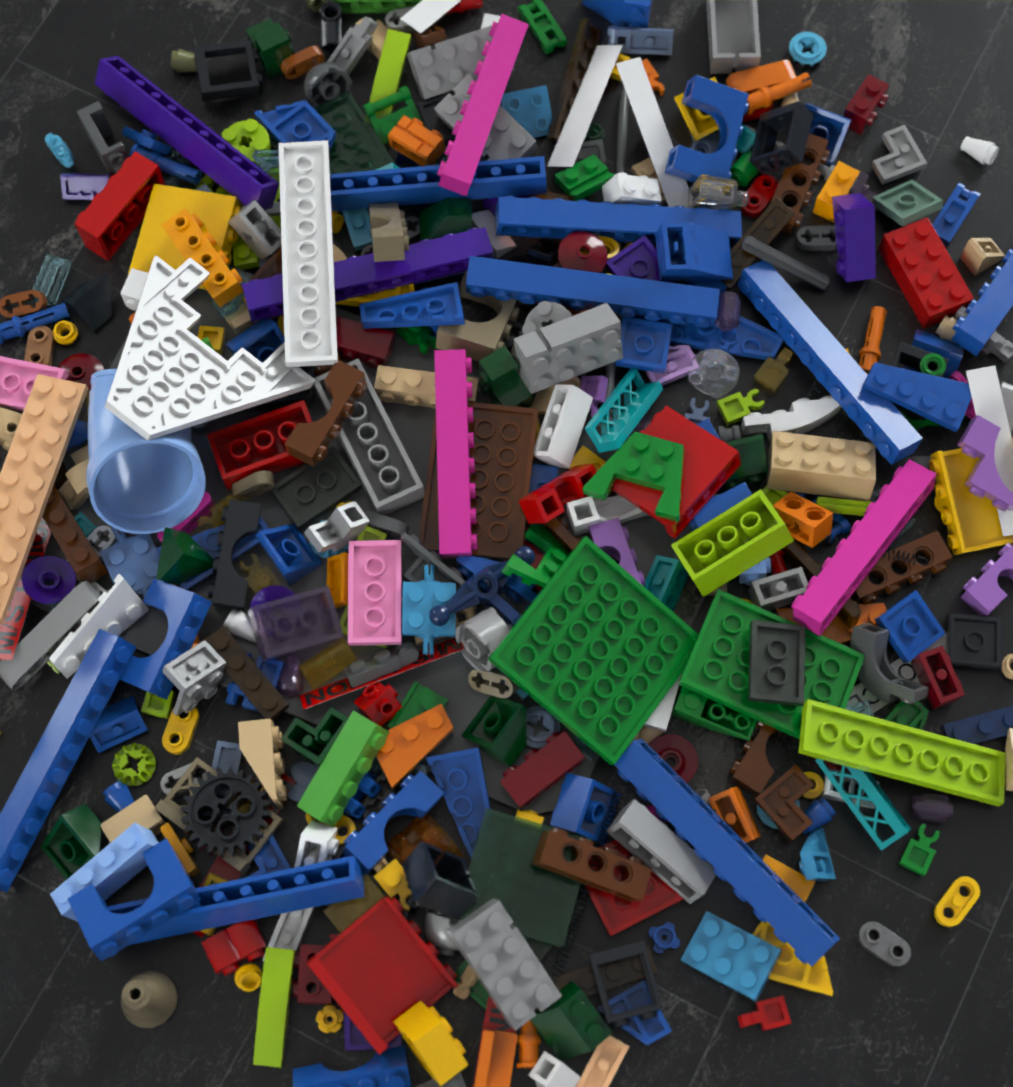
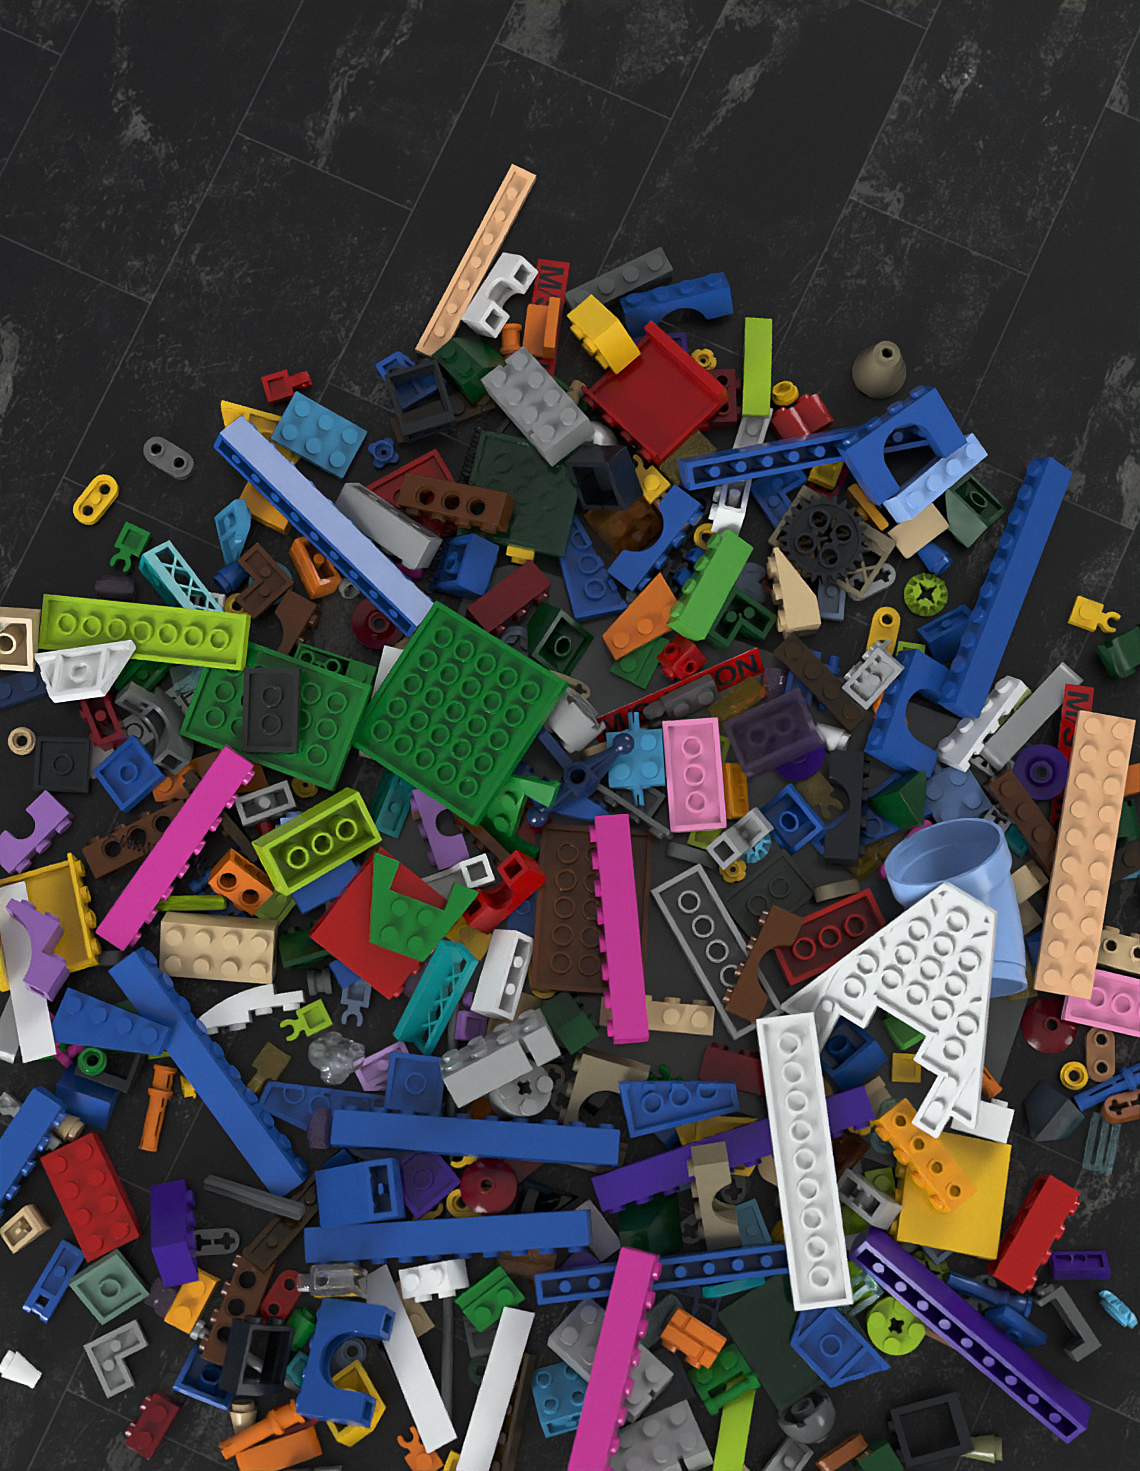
camera: 175 degrees right, 10 degrees up
(961, 717) = (83, 670): none -> white wing

